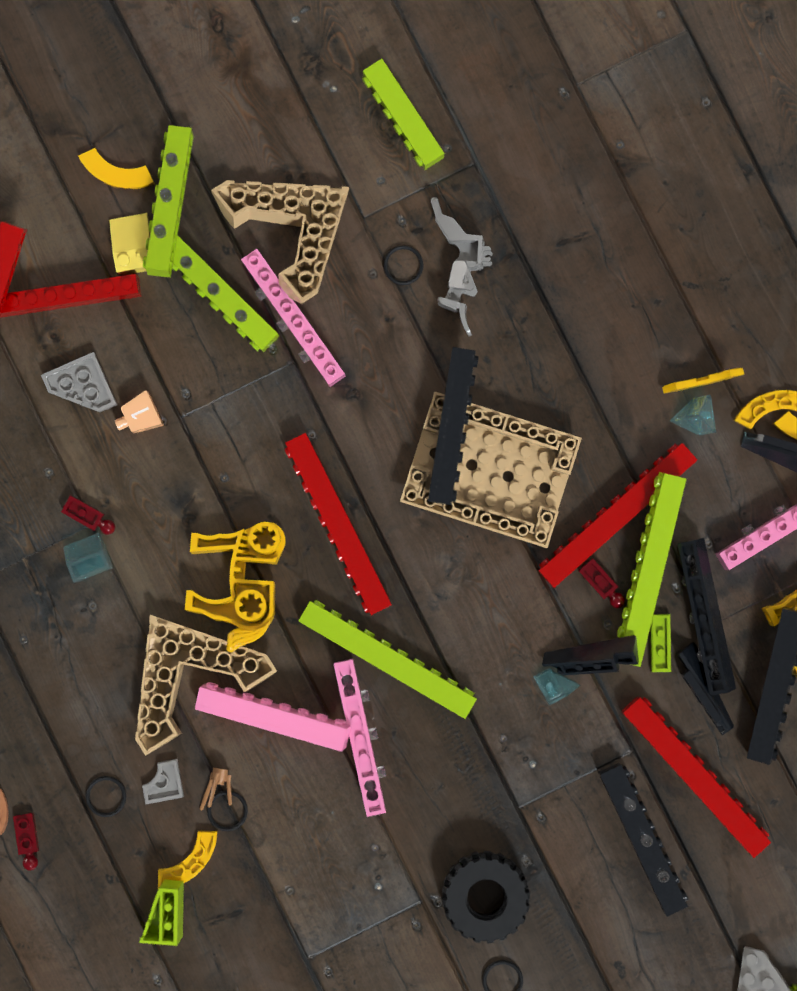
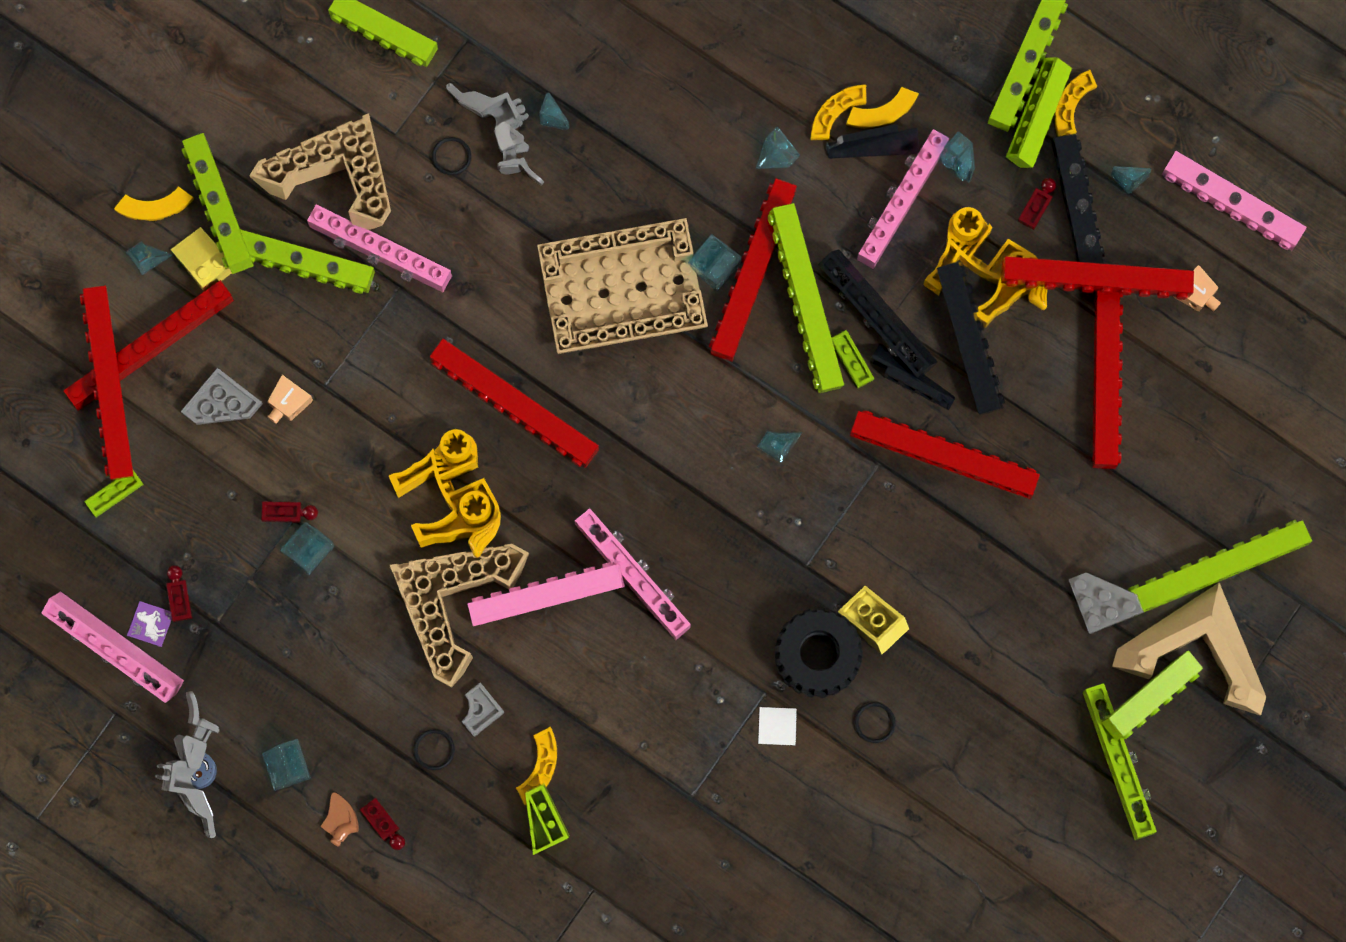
camera: 30 degrees left, 10 degrees down
(83, 215) = (146, 257): none -> clear light blue slope
(217, 776) = (526, 678): medium nougat plant -> none
(237, 825) = (567, 702): black tyre -> none
(387, 659) = (620, 495): lime brick -> none
(415, 937) = (777, 726): none -> white sticker
(452, 425) = (568, 264): black piece -> none
(513, 275) = (552, 115): none -> clear light blue slope
(551, 890) = (874, 619): none -> light yellow slope
(585, 490) = (715, 262): none -> clear light blue slope
(594, 657) = (800, 398): black wedge -> none
(601, 583) = (772, 334): dark red plate -> none
(643, 839) = (928, 532): black piece -> none
(713, 378) = (773, 111): yellow tile -> none

